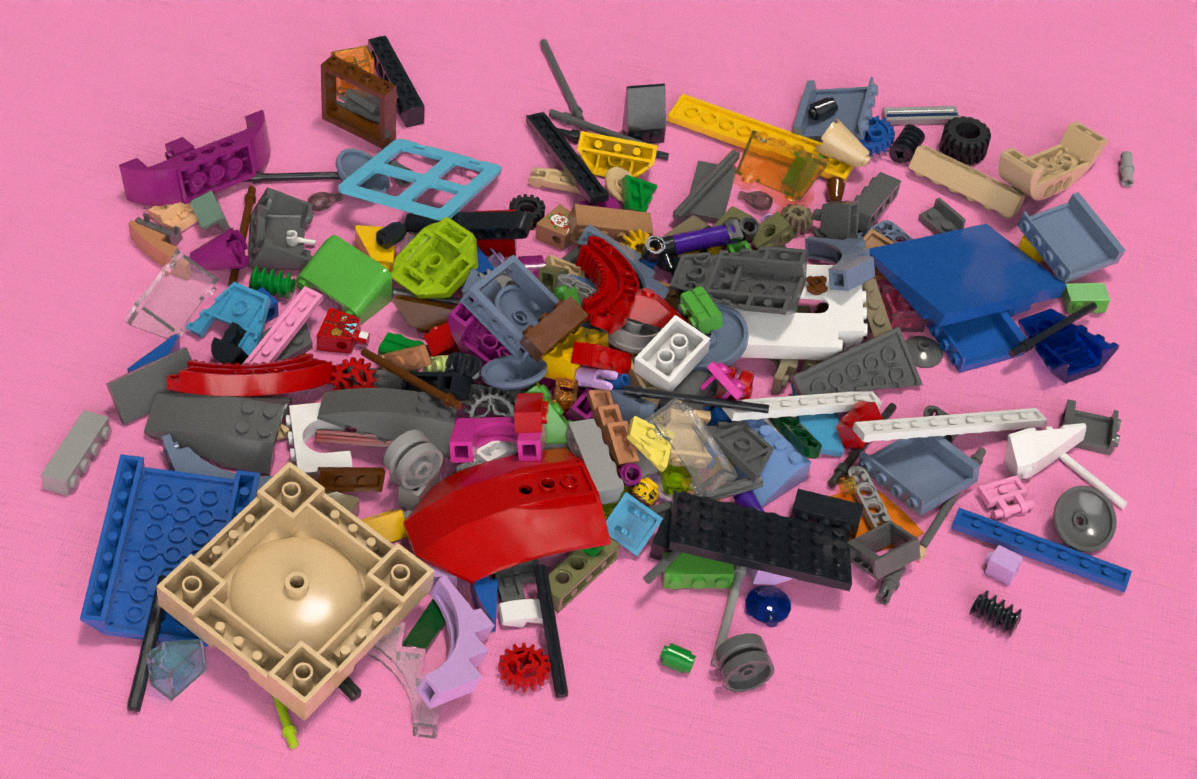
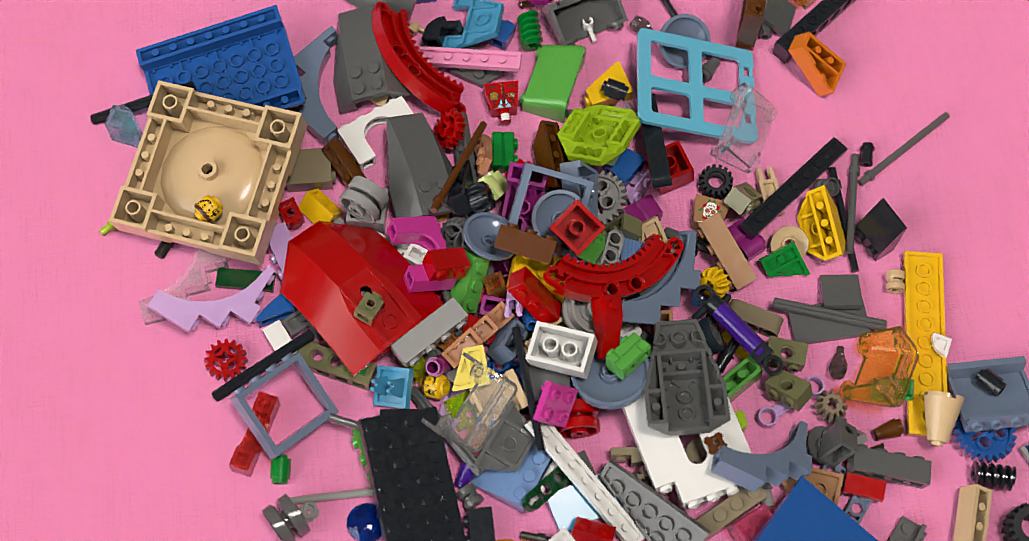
camera: 70 degrees right, 20 degrees up
(346, 598) = (208, 209): none -> yellow head
(447, 91) = (817, 63): none -> orange wedge
(504, 173) = (745, 129): none -> clear windscreen
(553, 281) = (576, 227): none -> red brick
(553, 485) = (366, 313): none -> olive brick
(554, 103) = (867, 154): none -> black pin
(561, 192) = (743, 198): none -> olive brick
(573, 139) = (831, 184): none -> dark grey wheel
(607, 649) = (249, 450): none -> clear red arch
(656, 635) = (255, 425): none -> sand blue window
(686, 170) = (841, 291): none -> dark grey tile
(694, 133) = (895, 281): none -> tan wheel
(771, 126) = (941, 344): none -> white tile
(779, 506) = (470, 496): none -> dark grey wheel
(886, 222) = (864, 487): none -> red tile

